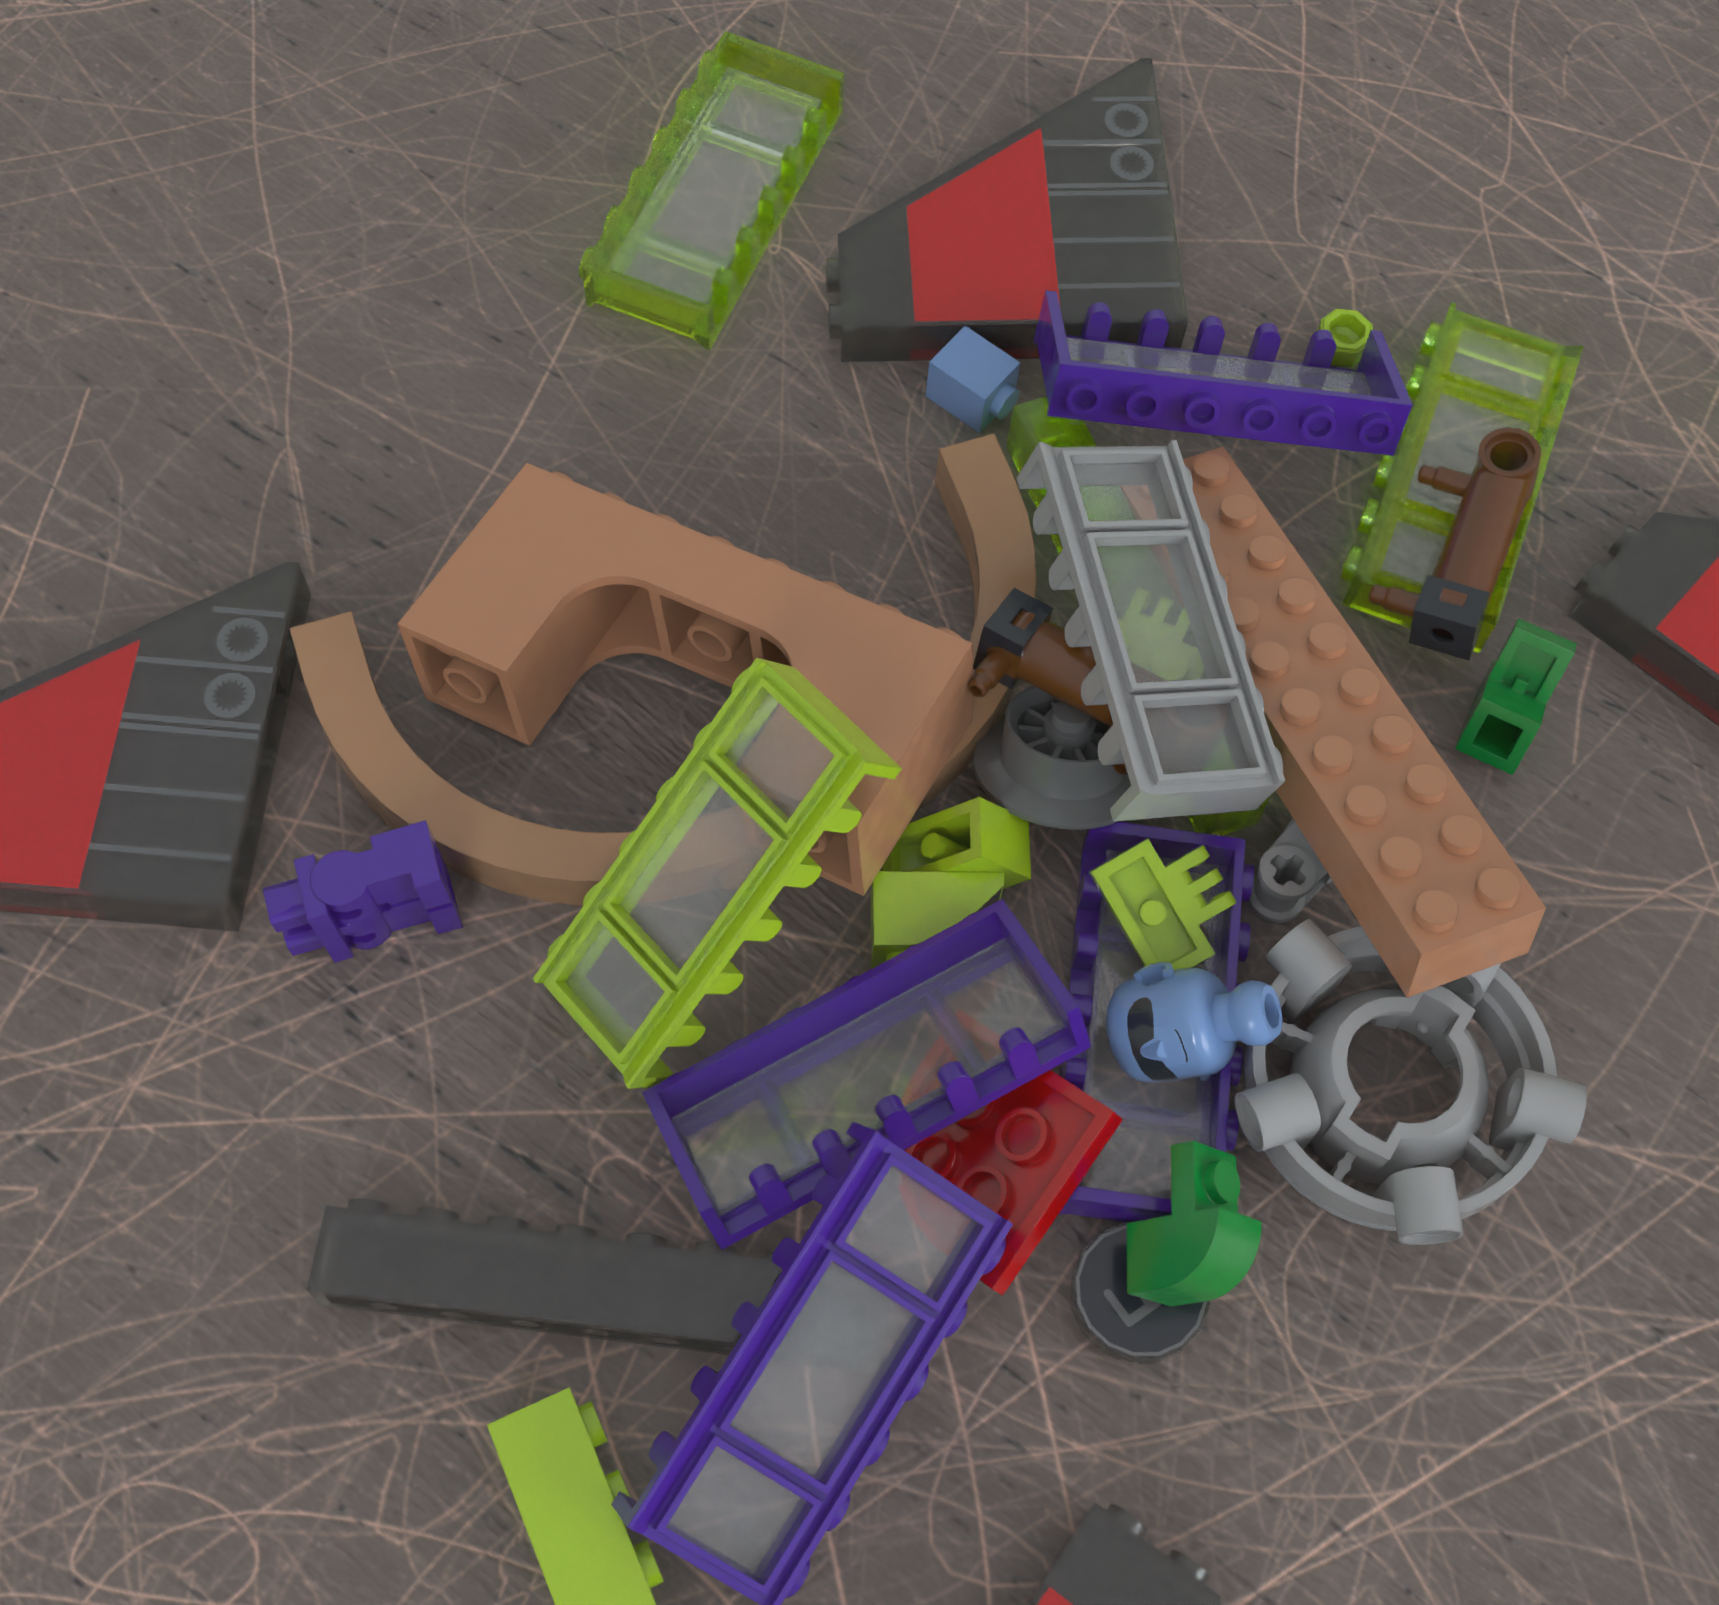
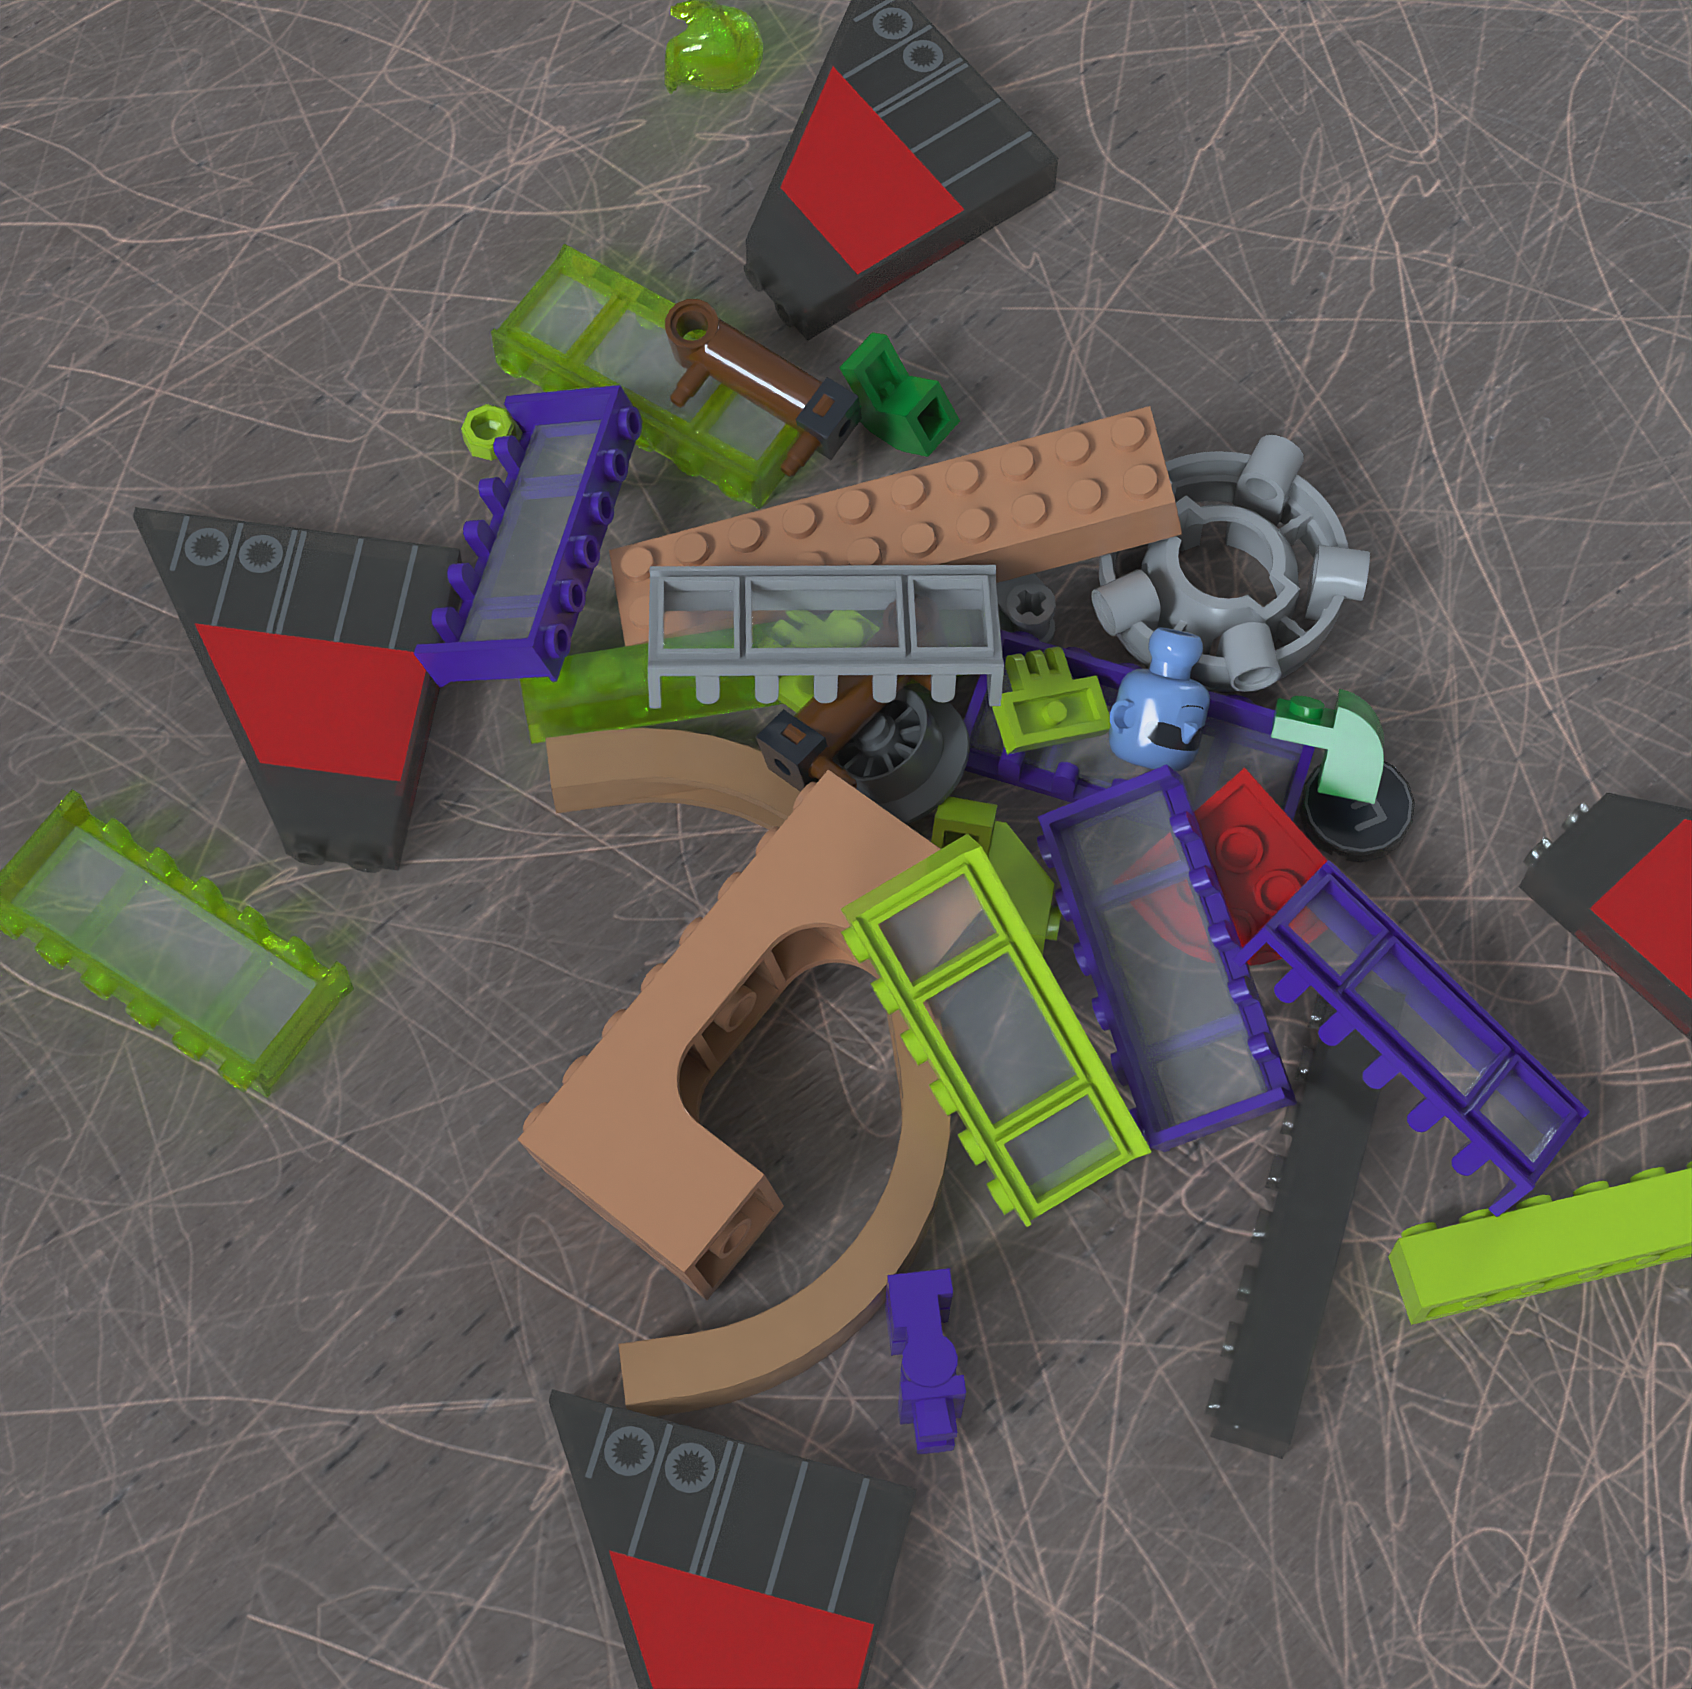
camera: 75 degrees left, 0 degrees up
(973, 380) = (465, 749): medium blue brick -> none

